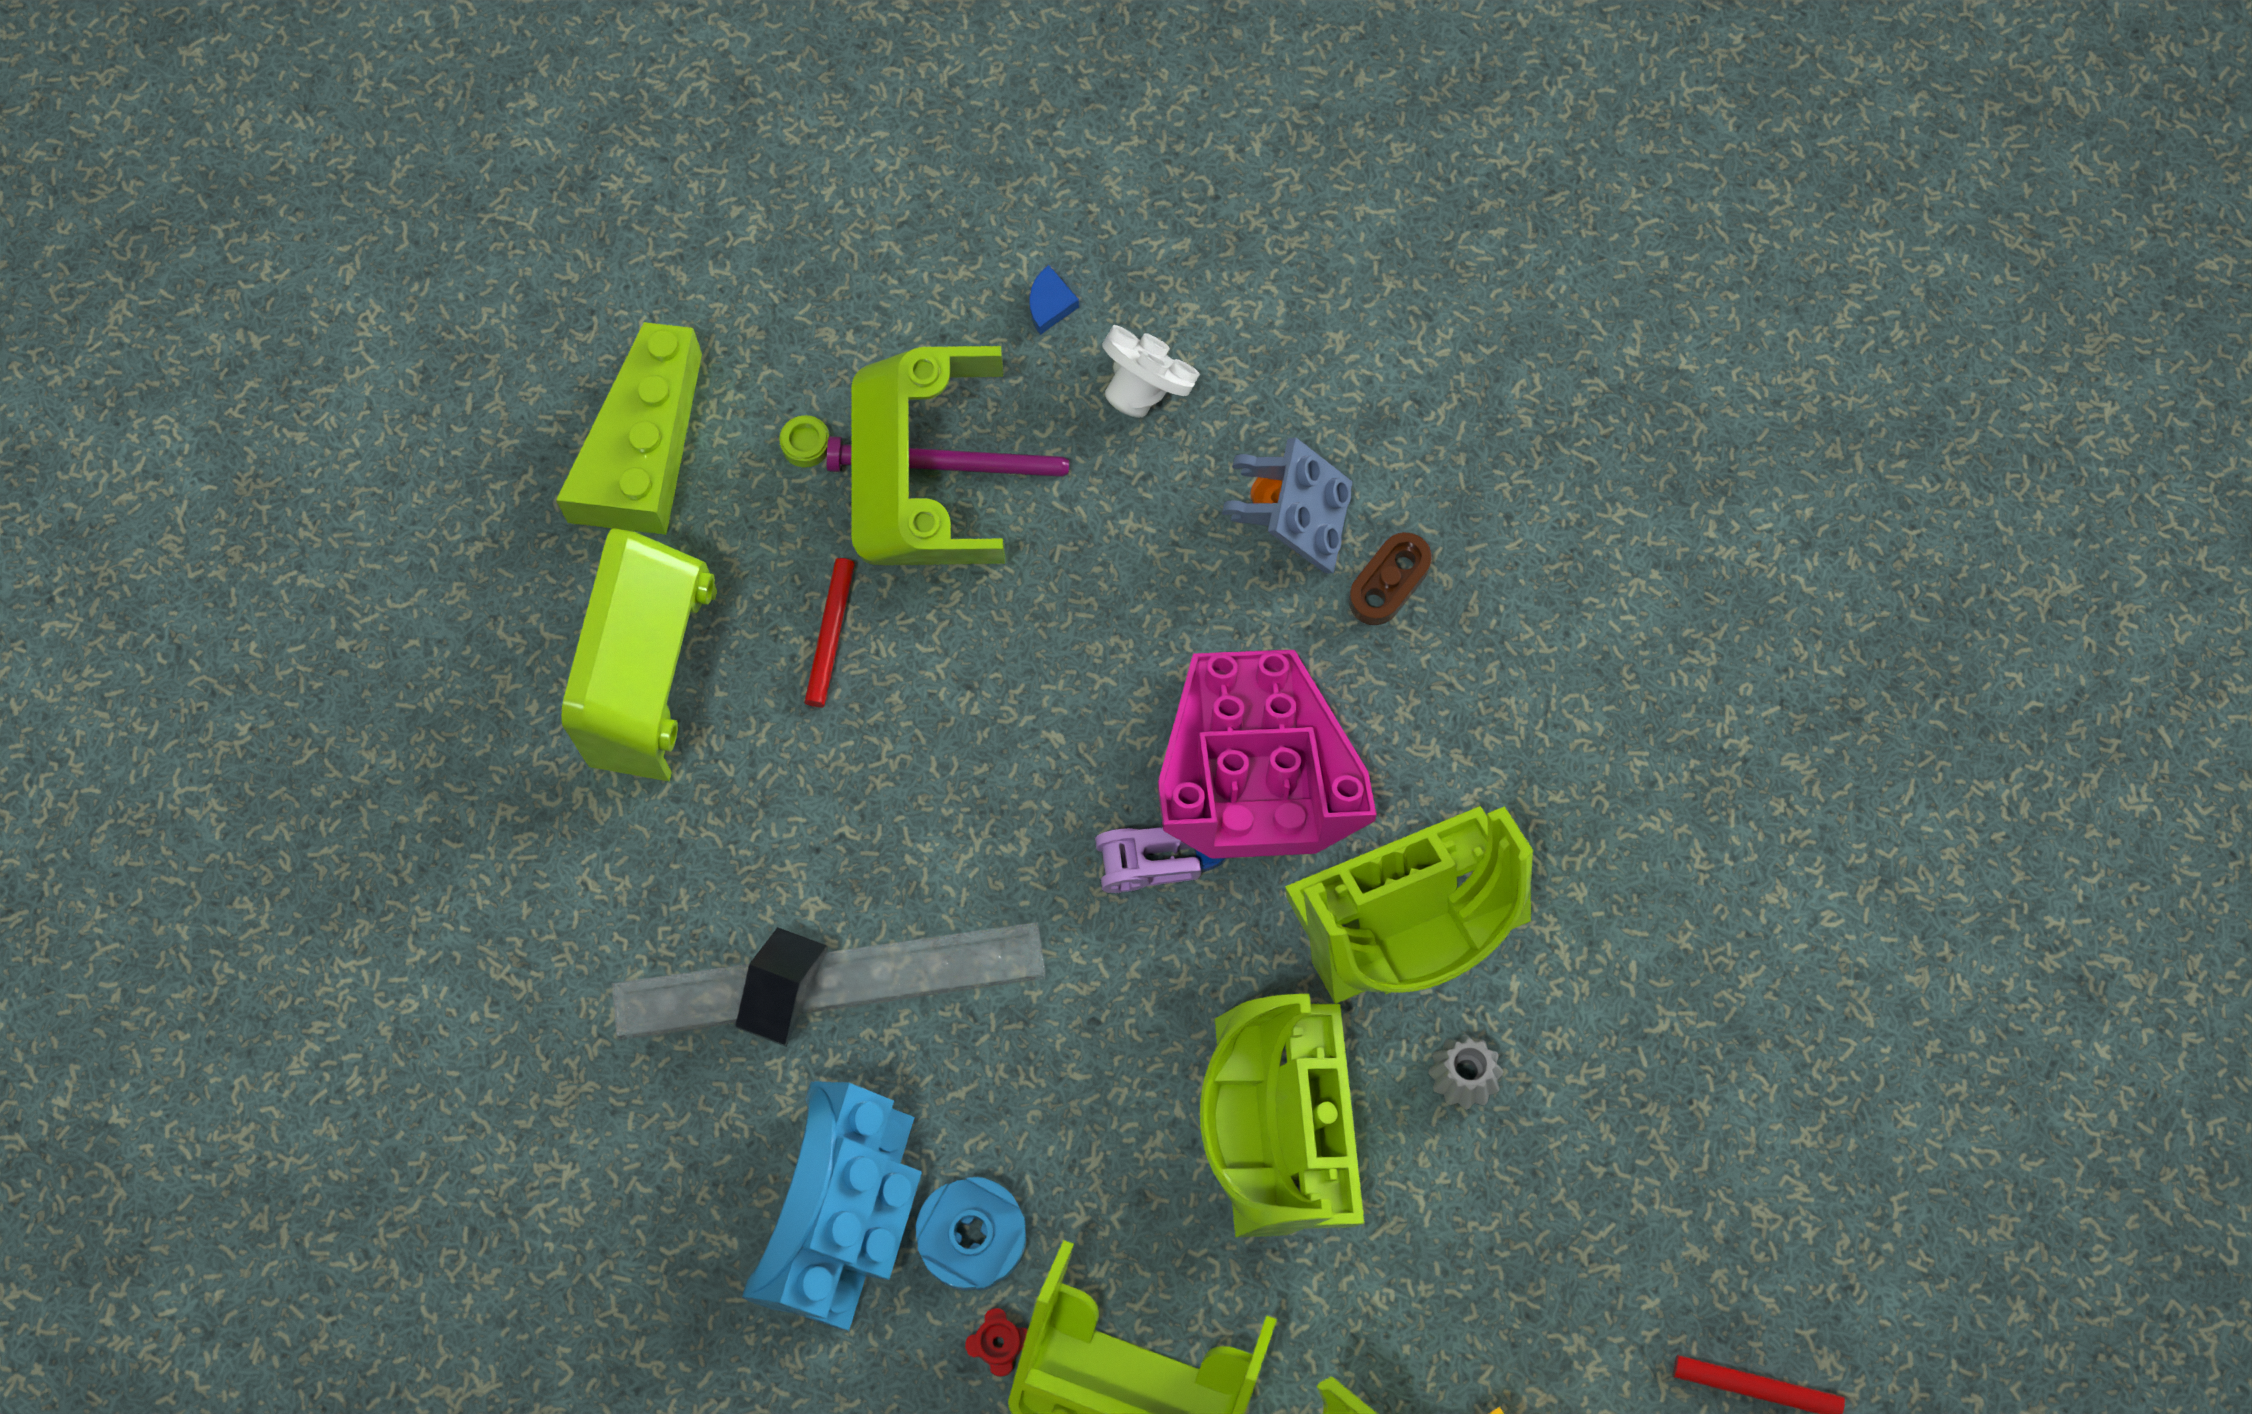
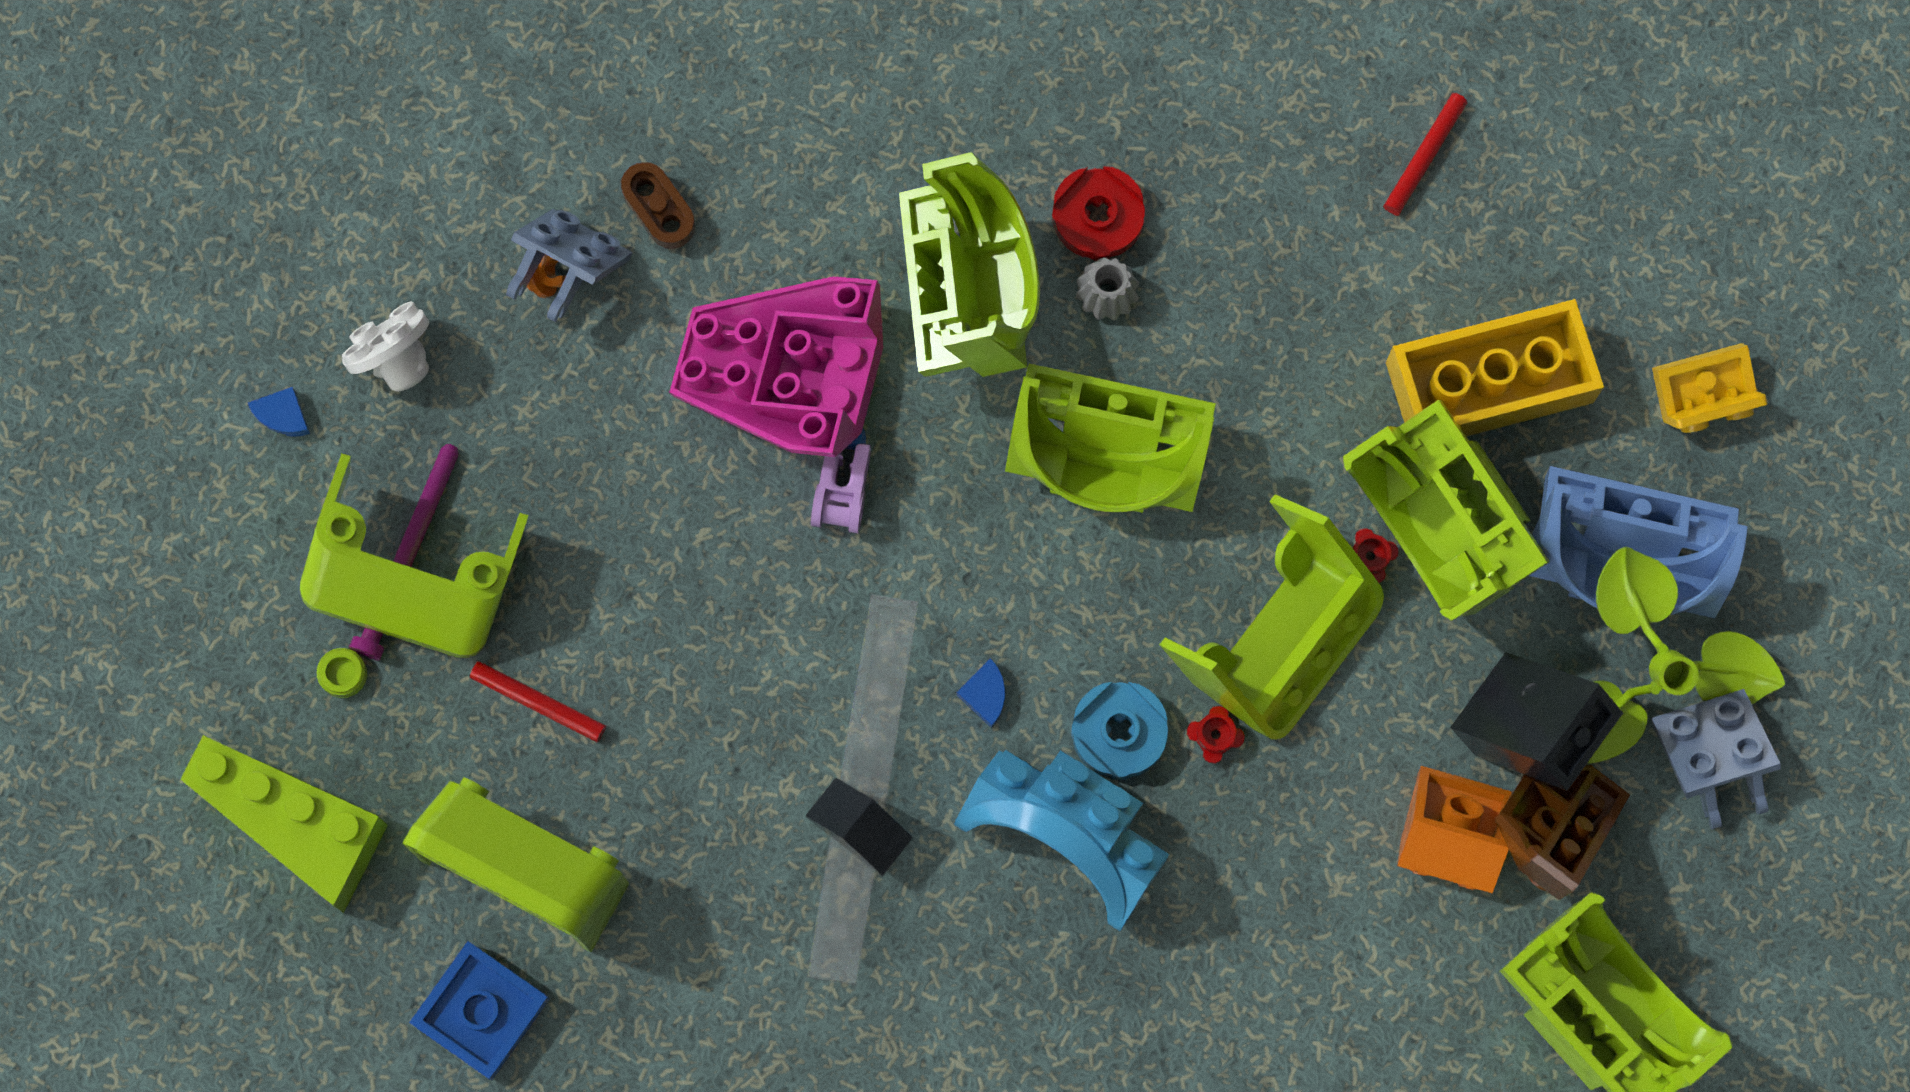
camera: 75 degrees left, 5 degrees up
(497, 677) = (479, 1010): none -> blue plate
(970, 1077) = (985, 693): none -> blue tile
(1577, 1023) = (1097, 187): none -> red plate

